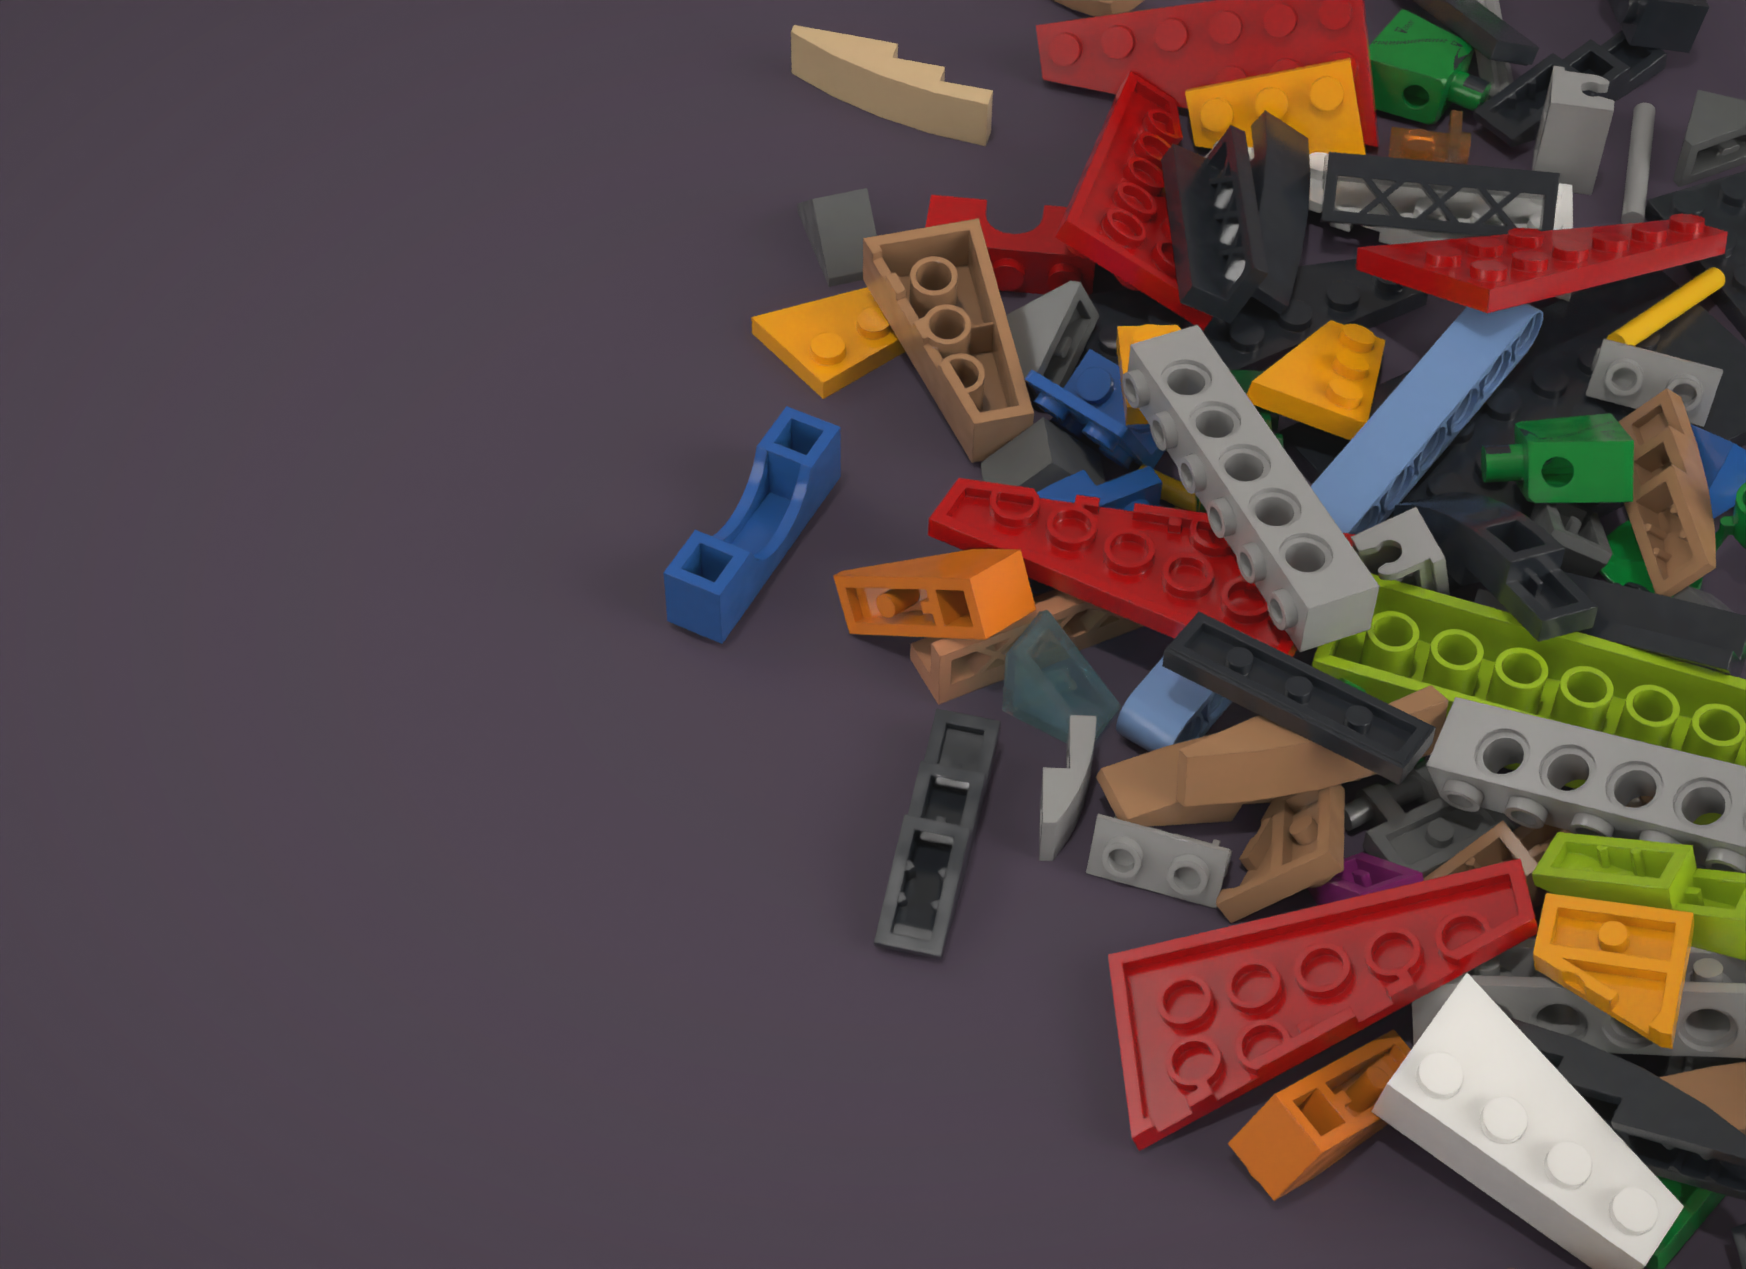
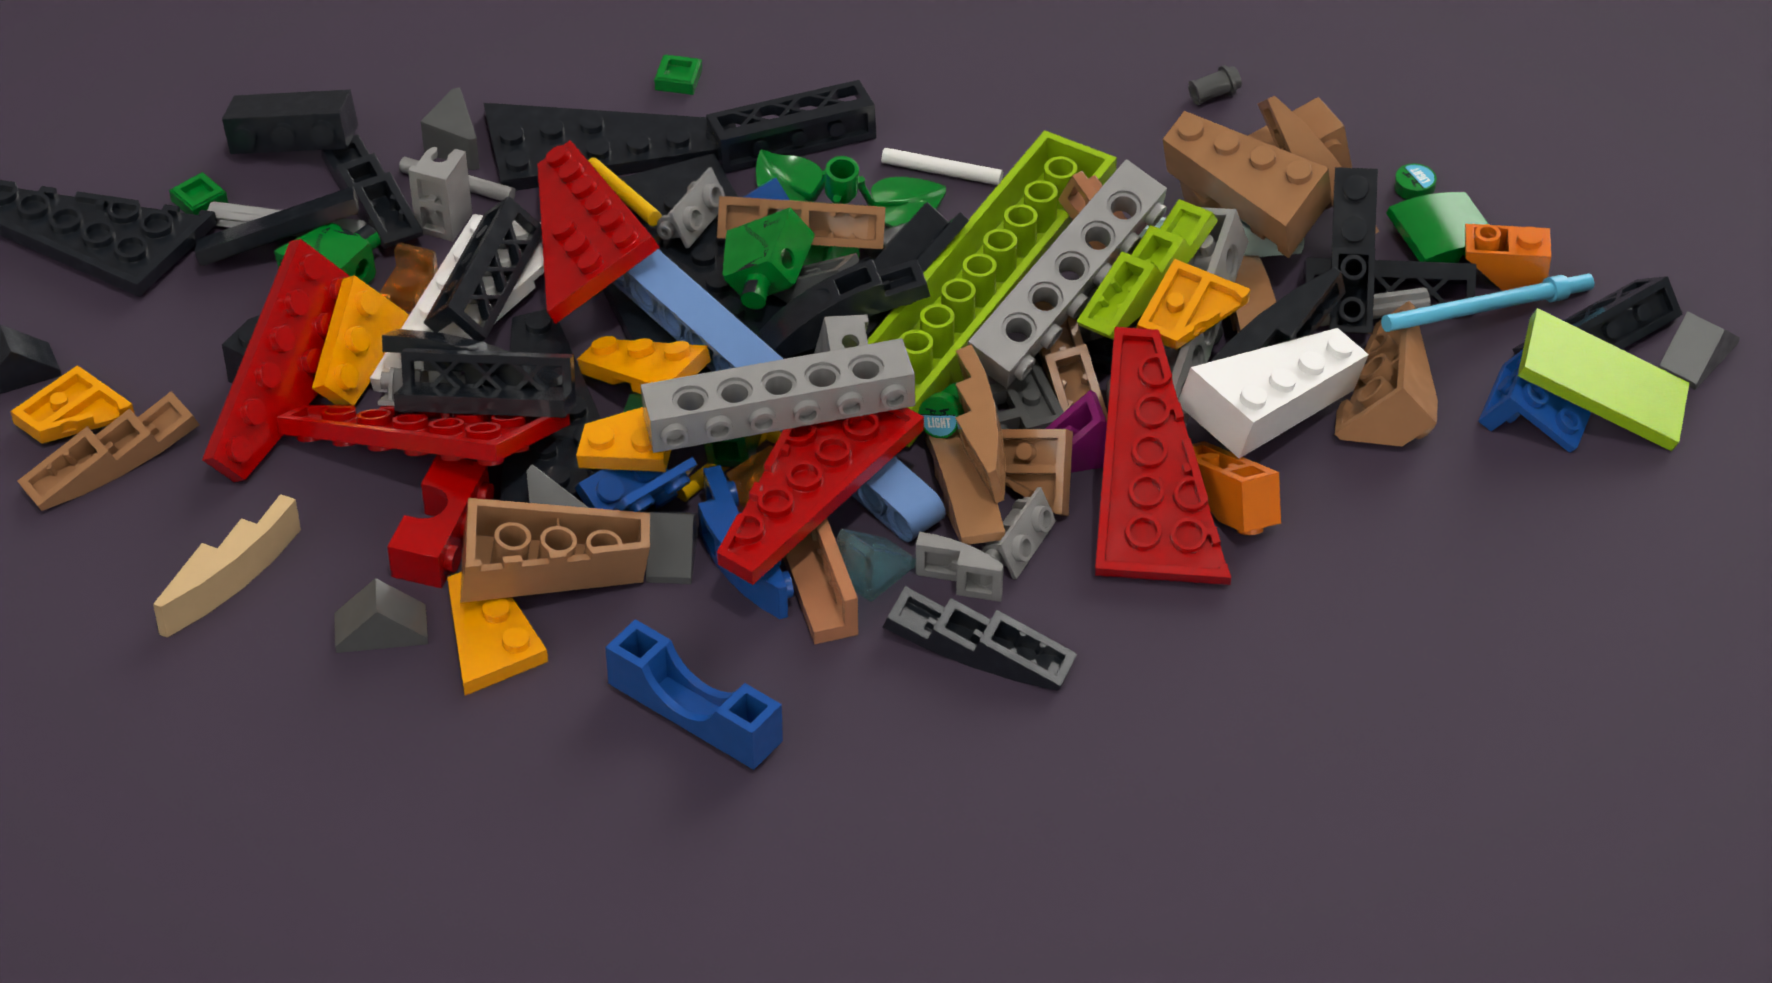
camera: 80 degrees left, 5 degrees down
(938, 595) = (804, 589): orange slope -> none
(1299, 697) = (960, 407): black tile -> none

